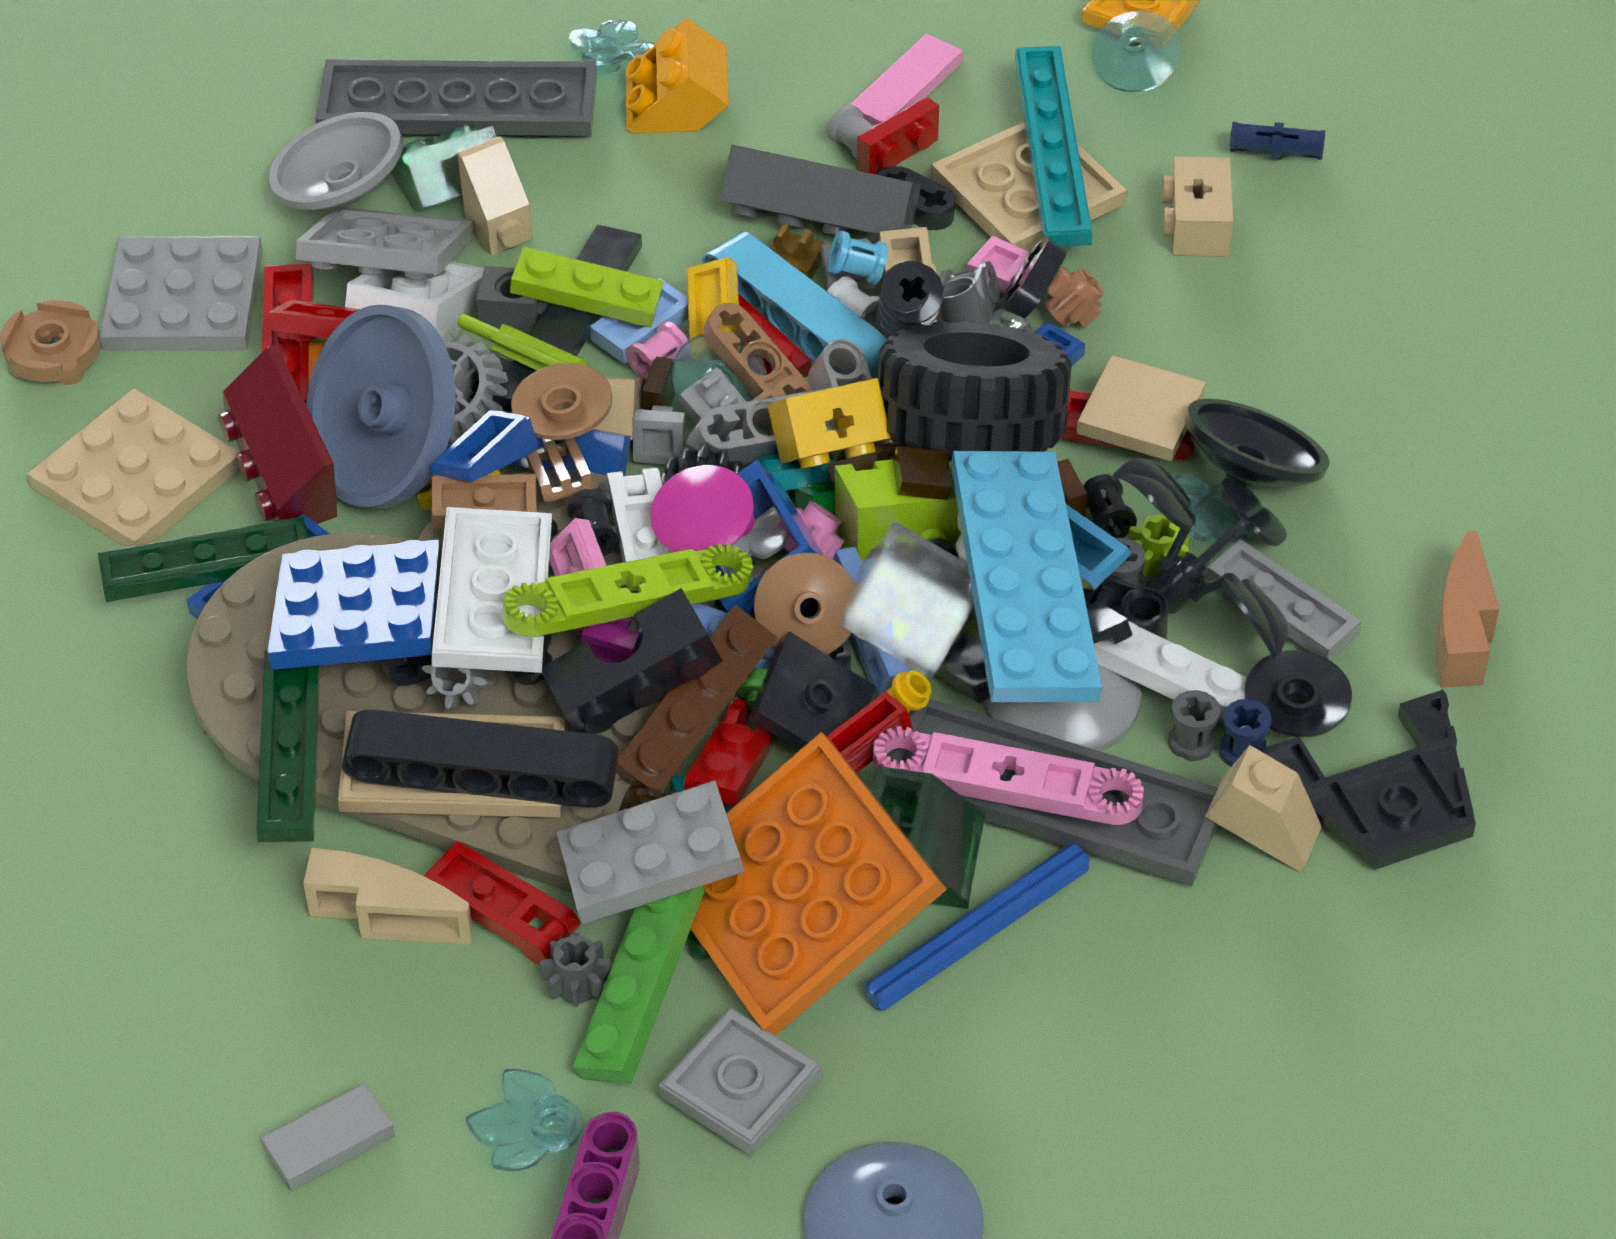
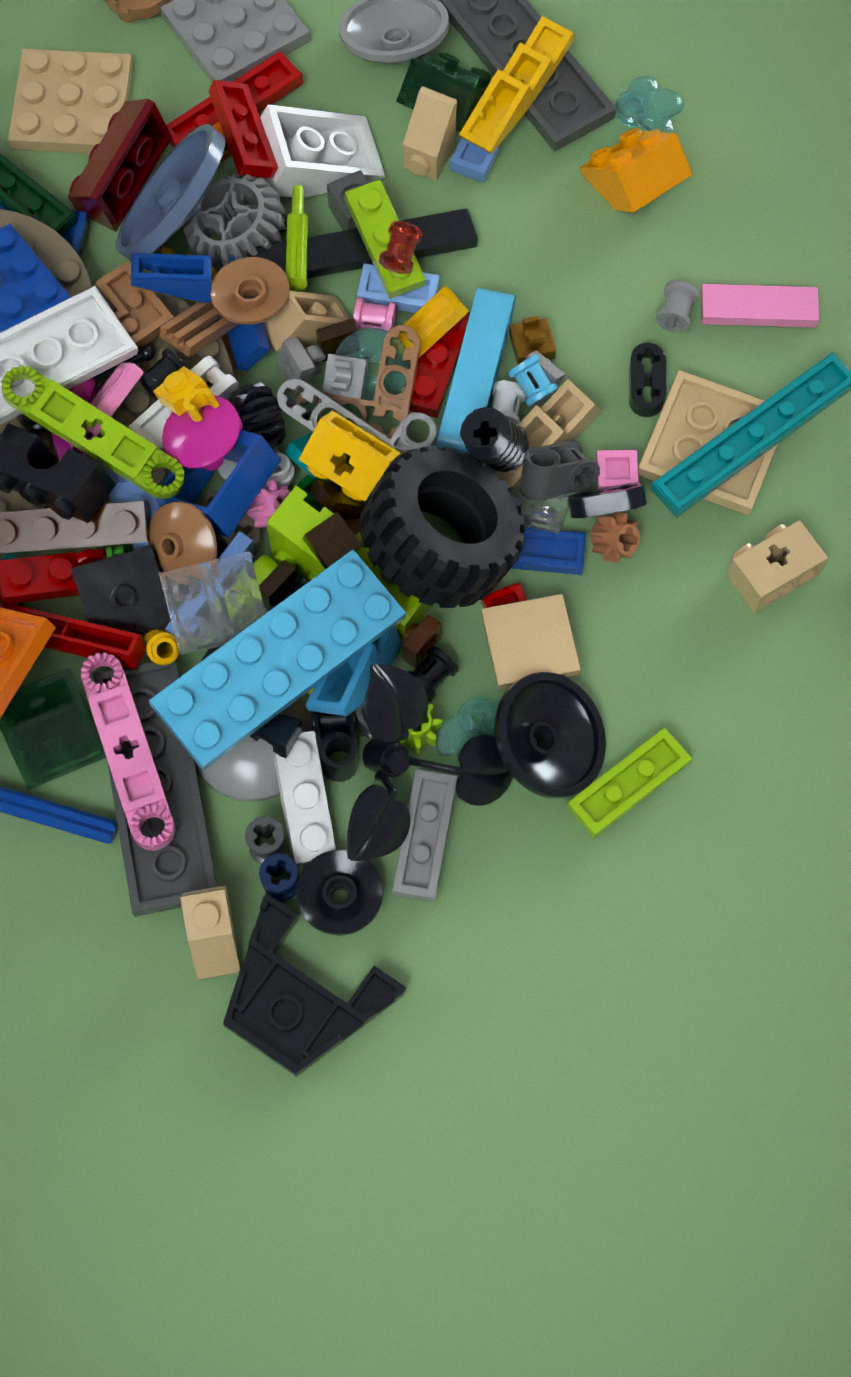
camera: 55 degrees right, 20 degrees up
(384, 242) = (340, 100): light grey plate -> none
(505, 103) = (517, 85): none -> yellow slope
(546, 190) = (472, 161): none -> medium blue plate
(626, 263) = (404, 256): none -> clear red bush
(648, 495) = (185, 392): none -> yellow plate
(817, 192) = (592, 317): dark grey wedge -> none
(898, 137) = (691, 334): red plate -> none
(1344, 423) = (629, 783): none -> lime plate
(1466, 617) = (493, 963): nougat slope -> none

